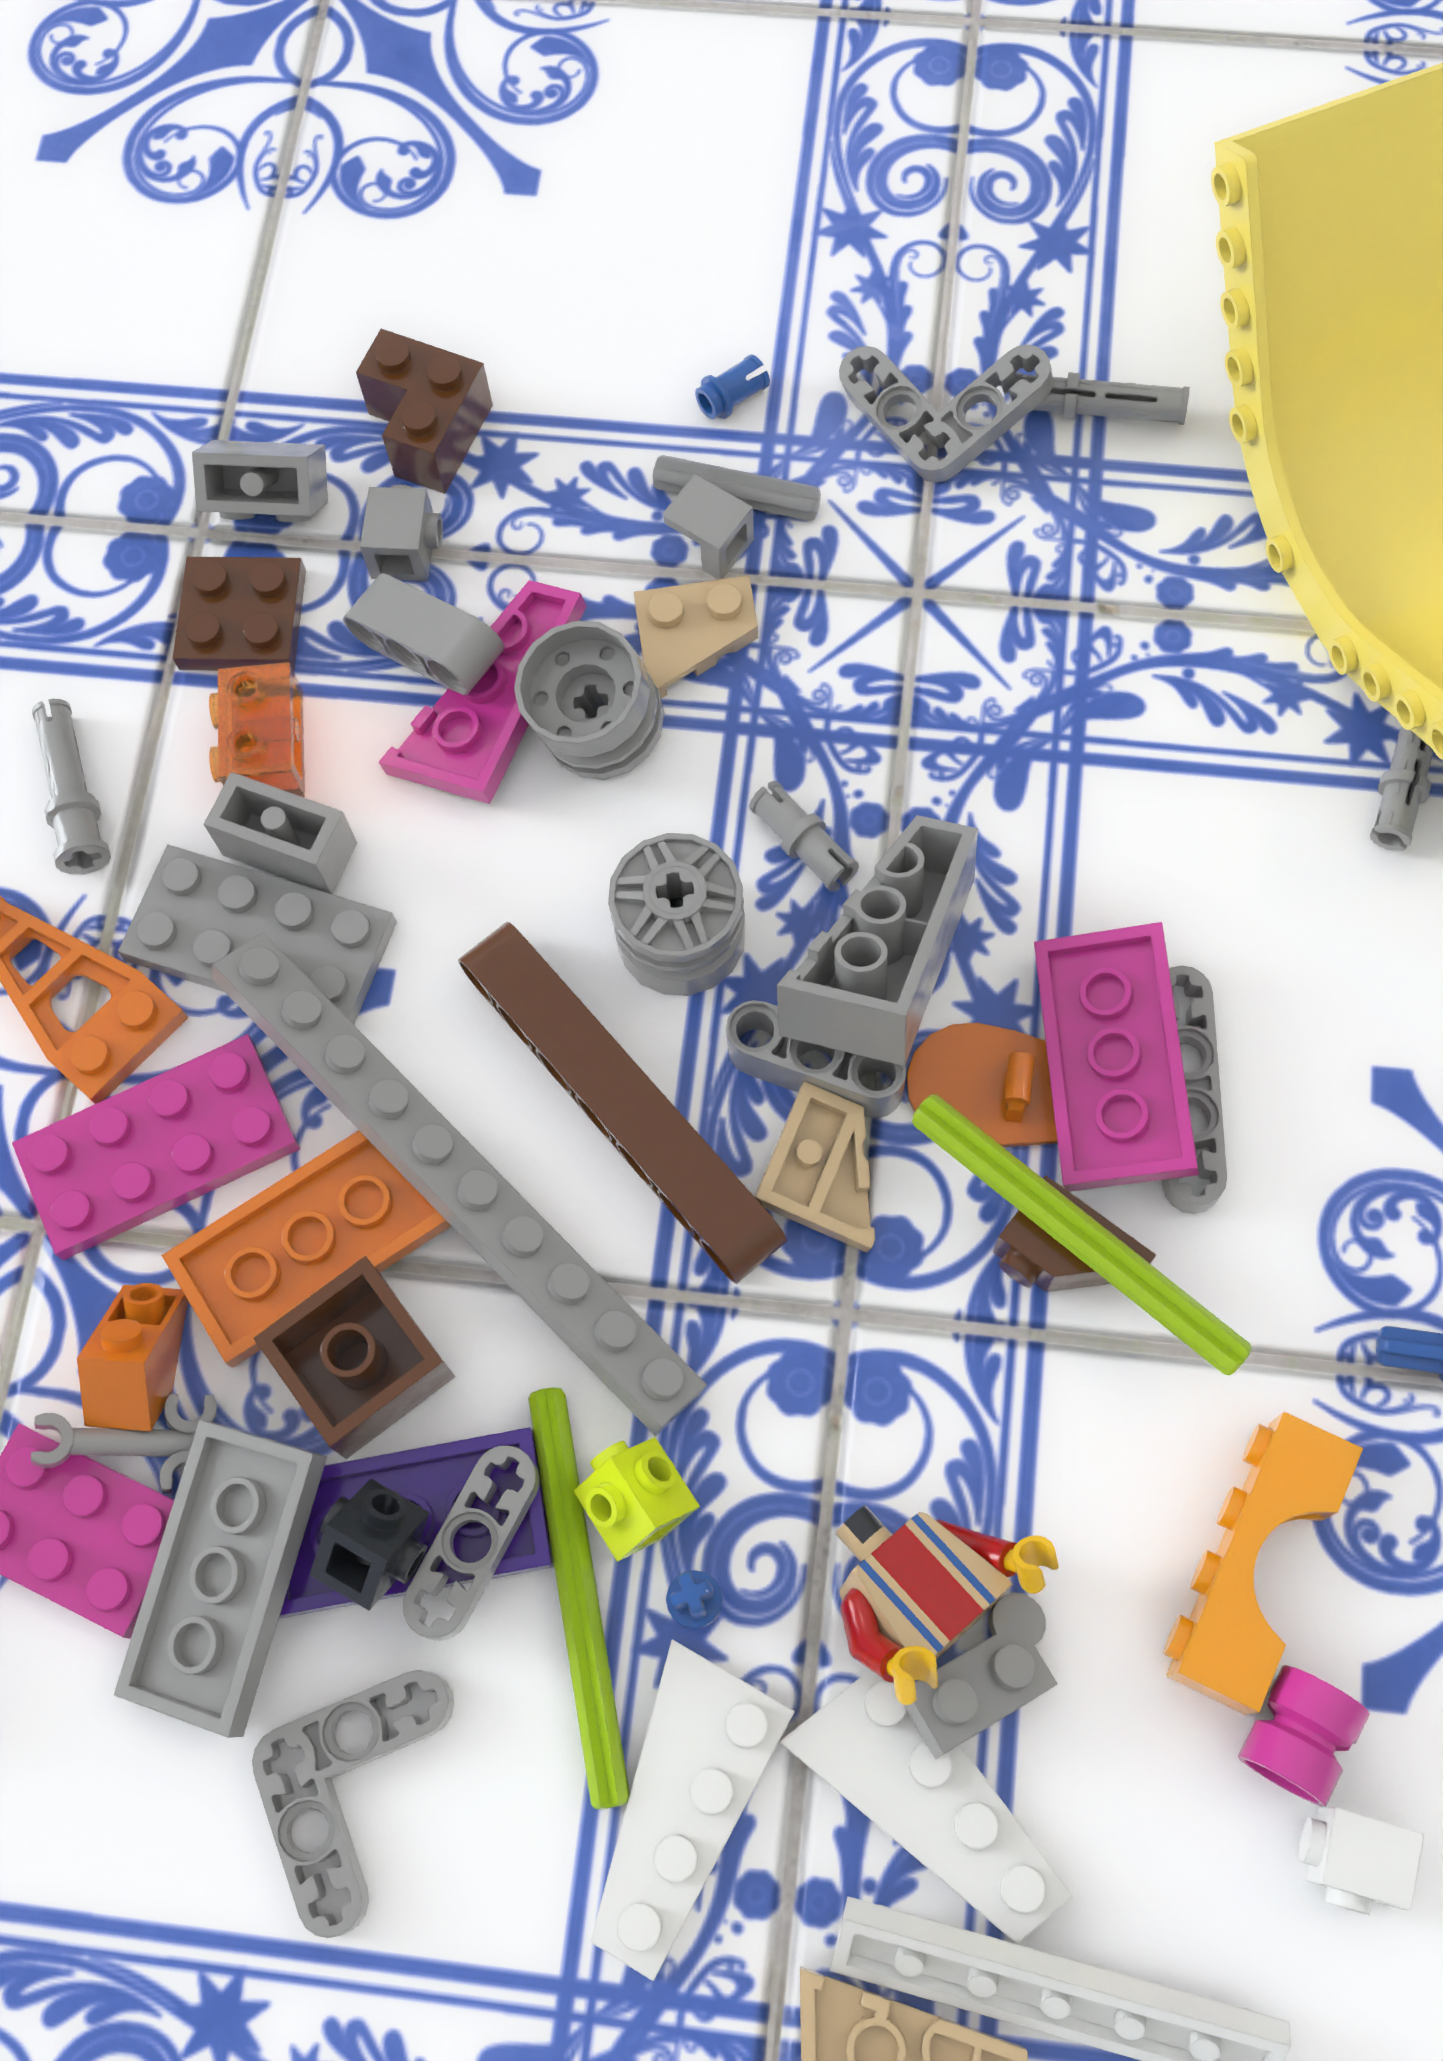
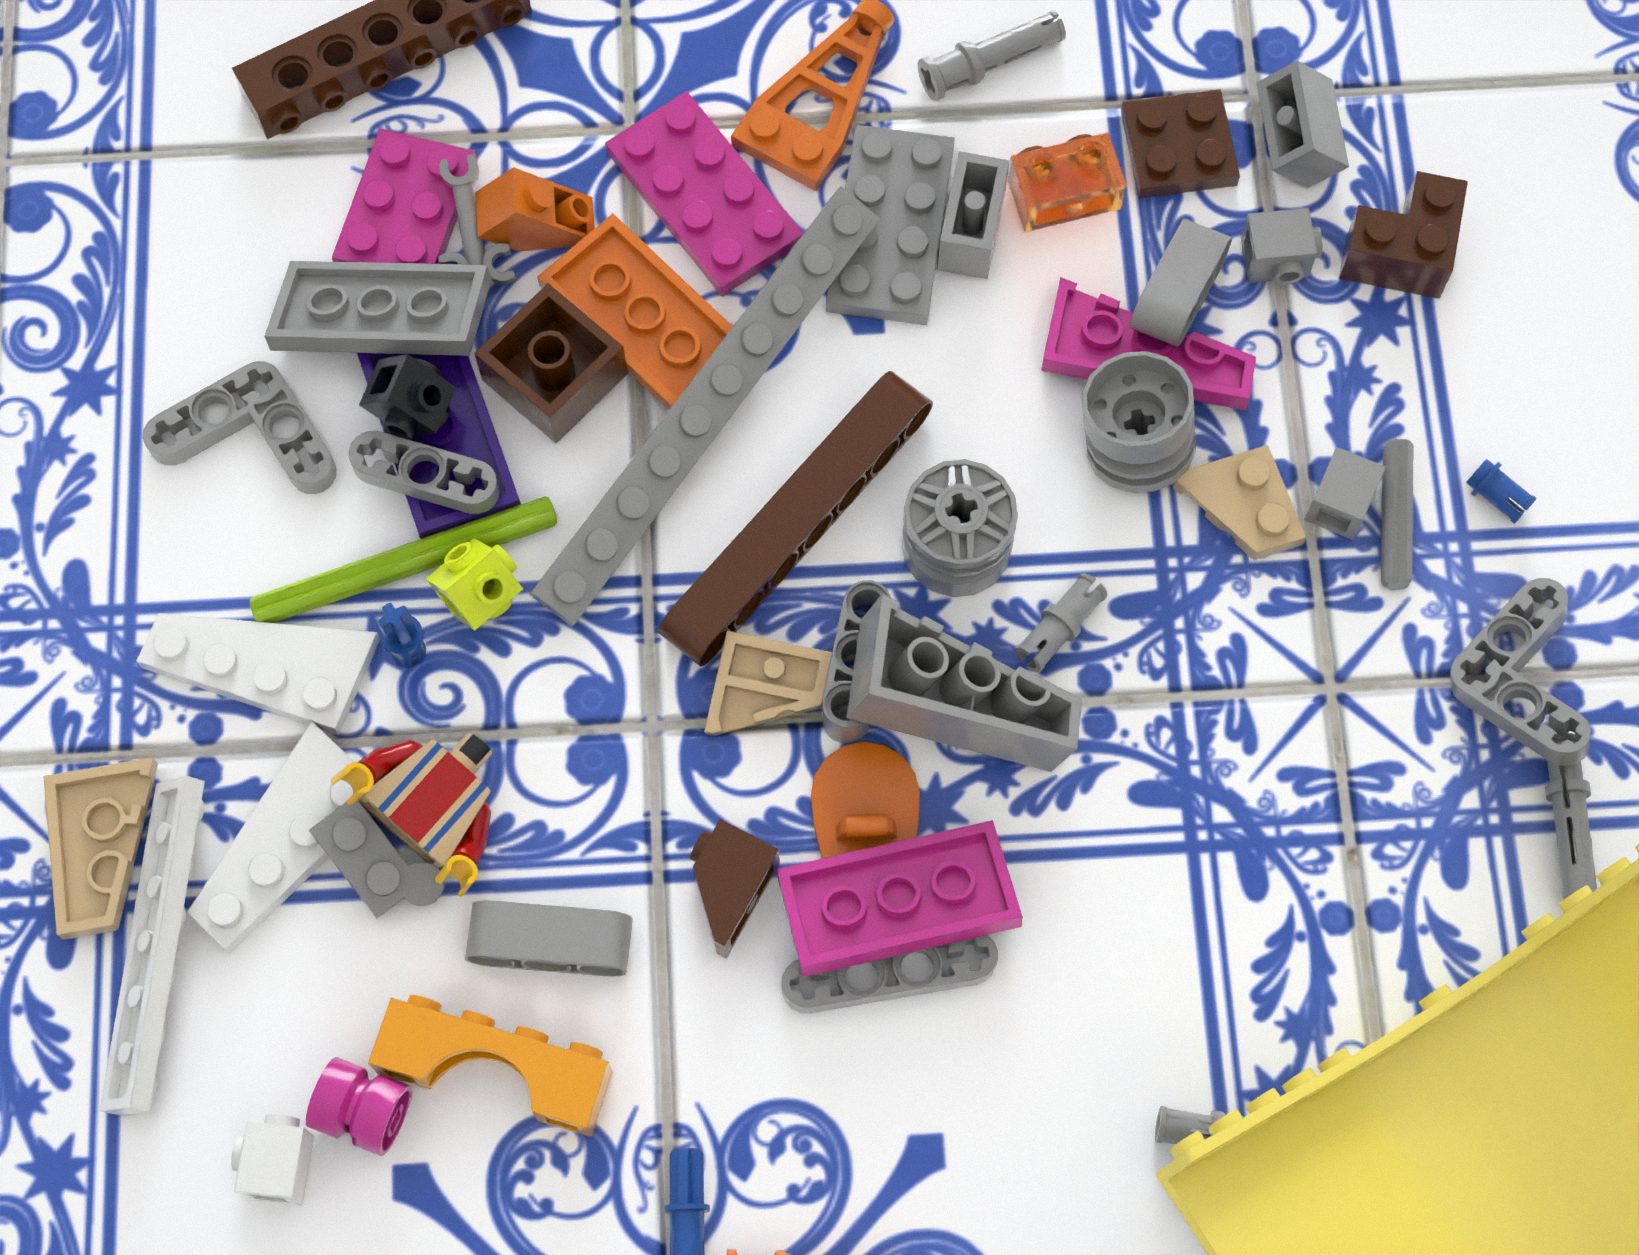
camera: 75 degrees right, 0 degrees up
(1082, 1235) = (727, 878): lime axle -> none
(1109, 1471) = (549, 938): none -> light grey beam

